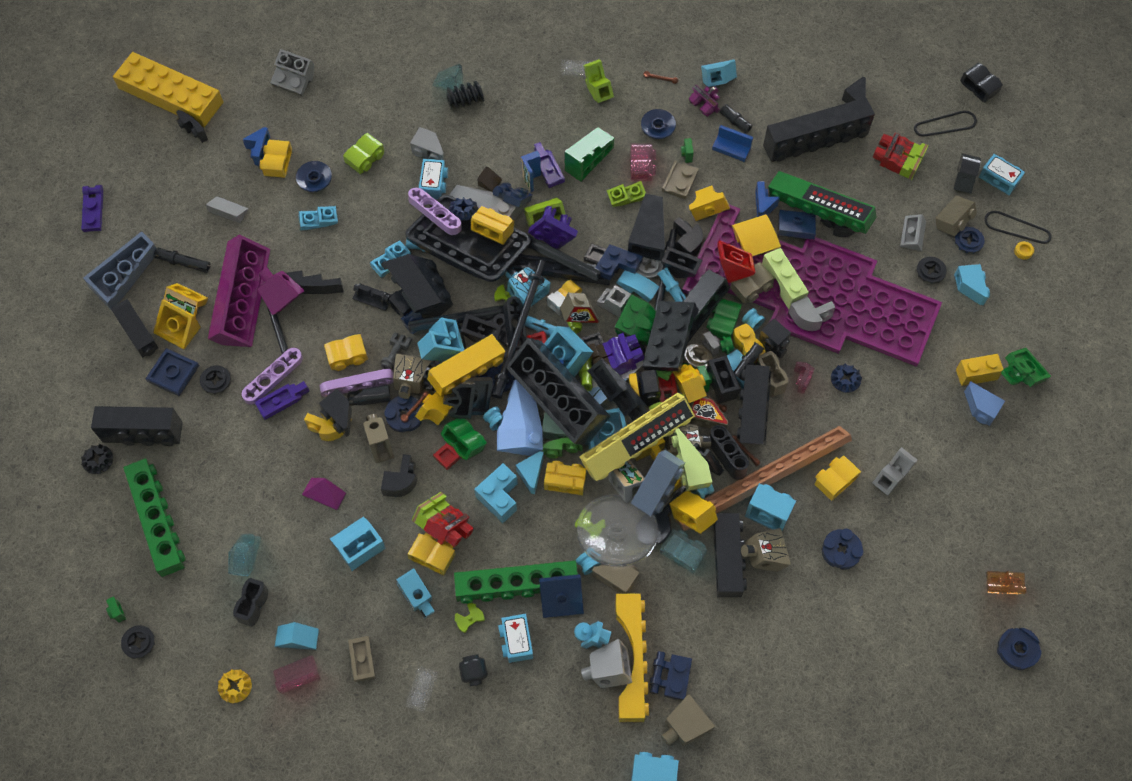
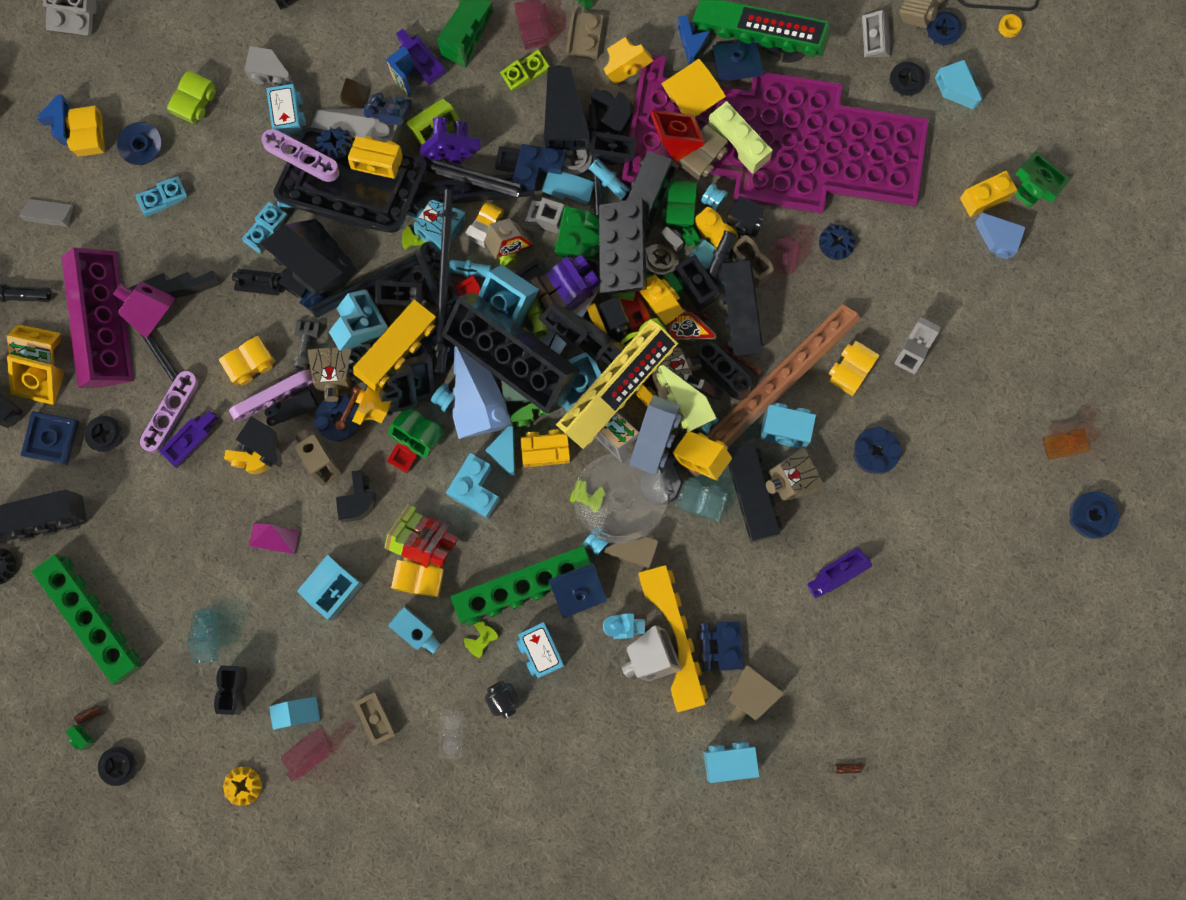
camera: 10 degrees left, 15 degrees up
(128, 594) = (86, 715): none -> copper piece
(787, 639) = (839, 572): none -> dark purple hinge
(808, 316) = (776, 179): light grey brick -> none

